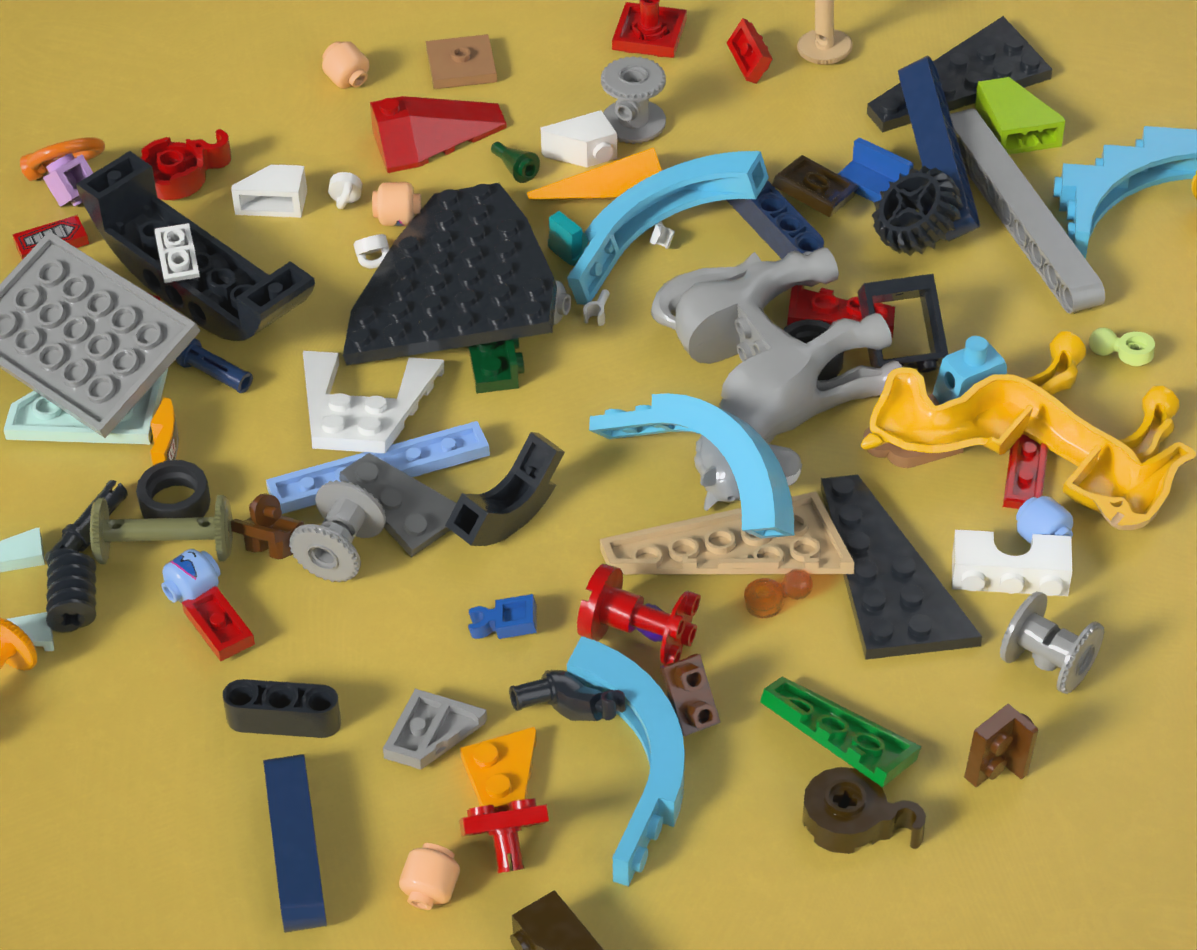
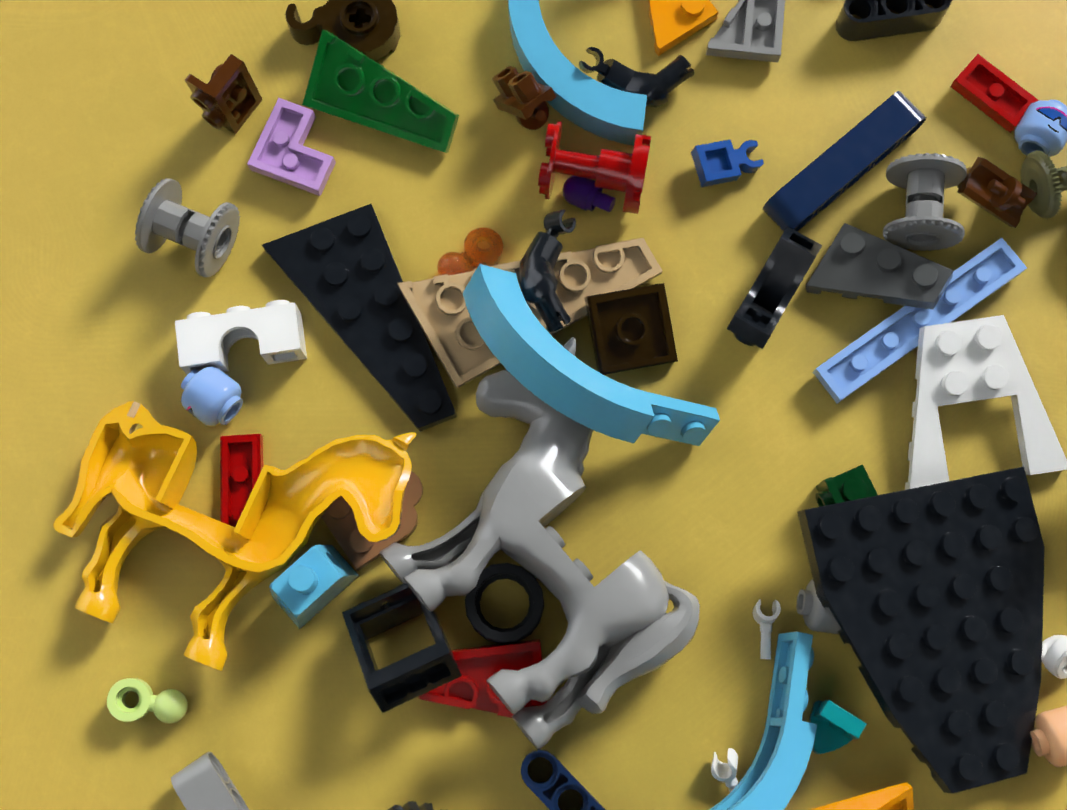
camera: 165 degrees right, 30 degrees up
(390, 593) = (844, 163): none -> dark blue beam
(643, 504) = (631, 329): none -> dark brown tile
(720, 538) = (537, 272): none -> black arm
(947, 708) = (282, 153): none -> lavender plate

